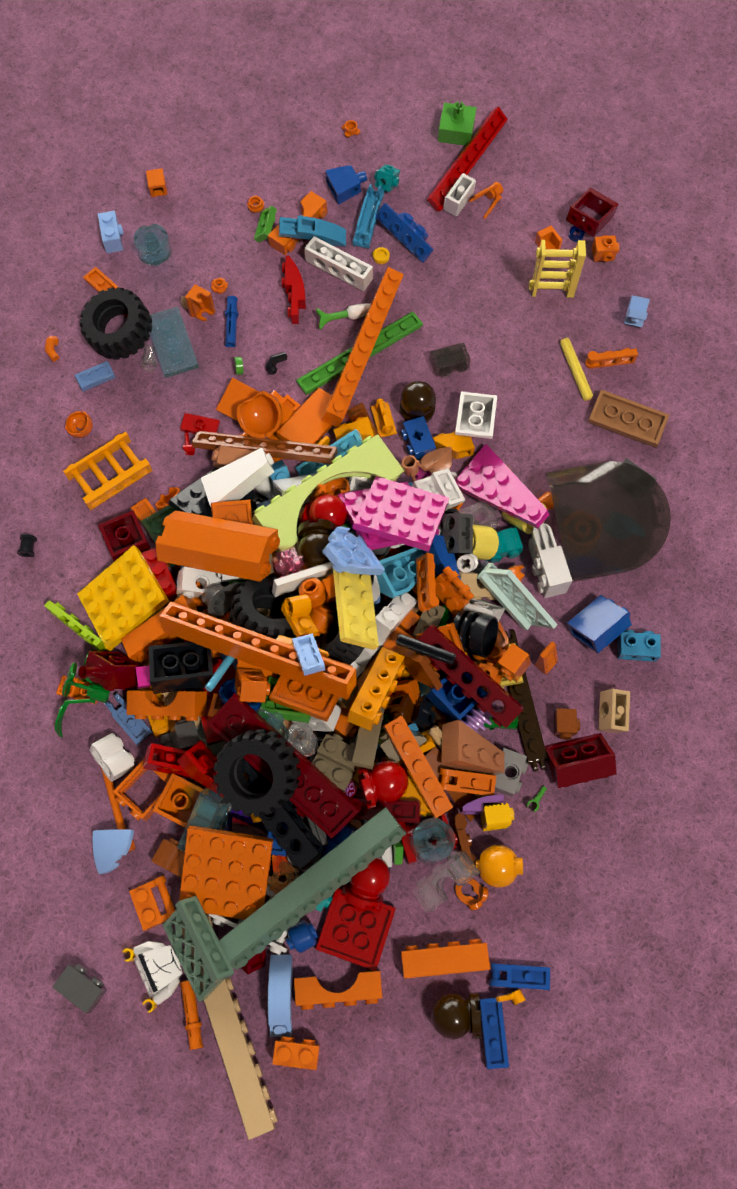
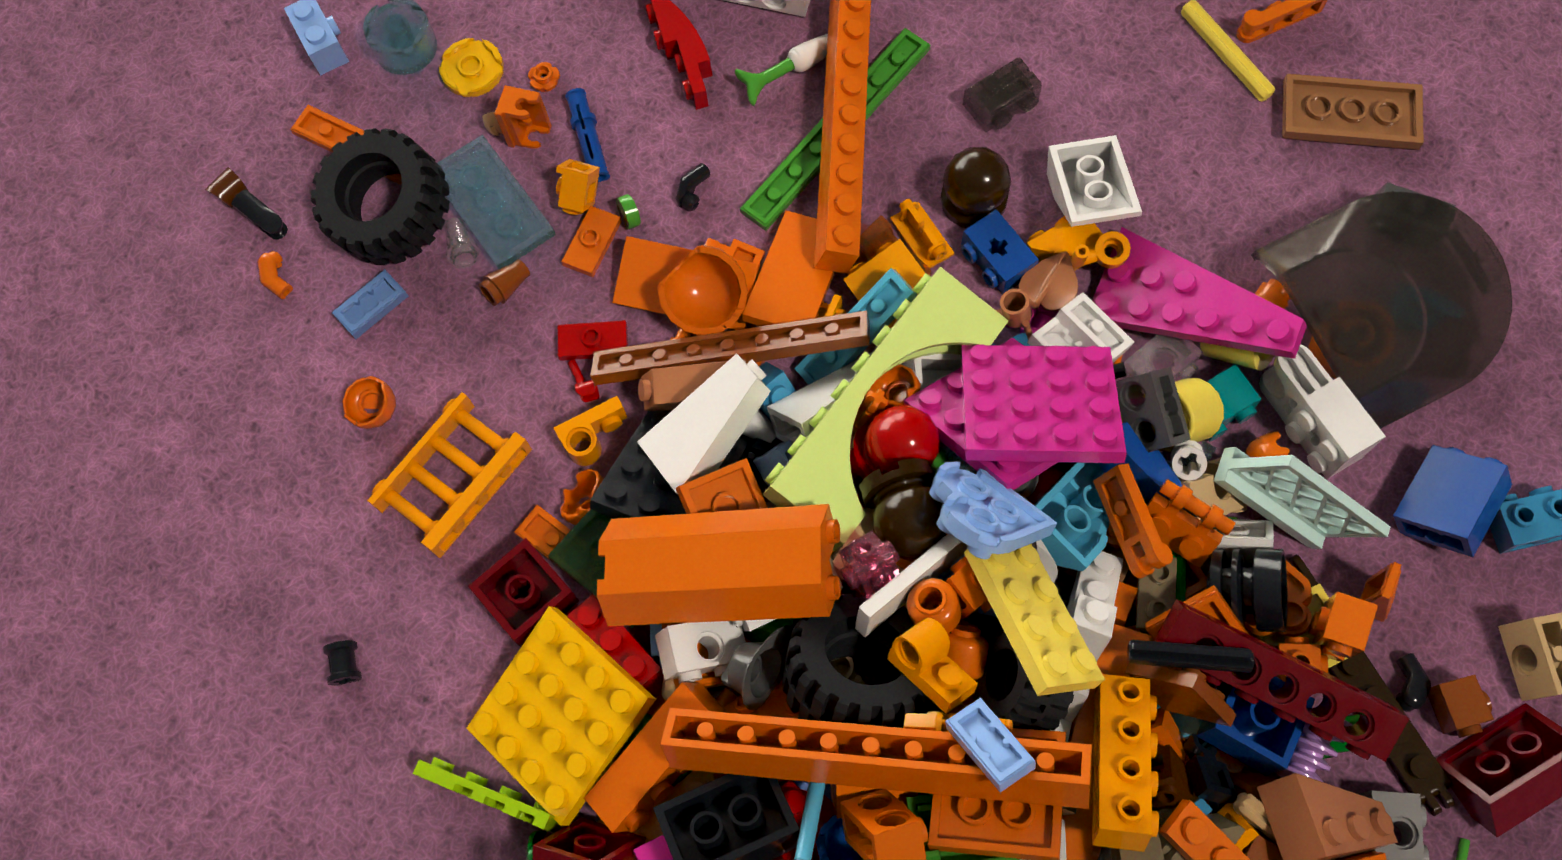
camera: 10 degrees left, 0 degrees up
(44, 301) = (234, 193): none -> black piece
(164, 384) = (503, 282): none -> dark orange cone
(182, 466) = (585, 426): none -> light orange plate
(184, 270) = (469, 76): none -> yellow tile
(216, 345) = (576, 186): none -> light orange brick
(216, 375) = (591, 241): none -> orange plate
(456, 452) = (1084, 256): none -> light orange plate
(548, 708) = (1416, 685): none -> black arm

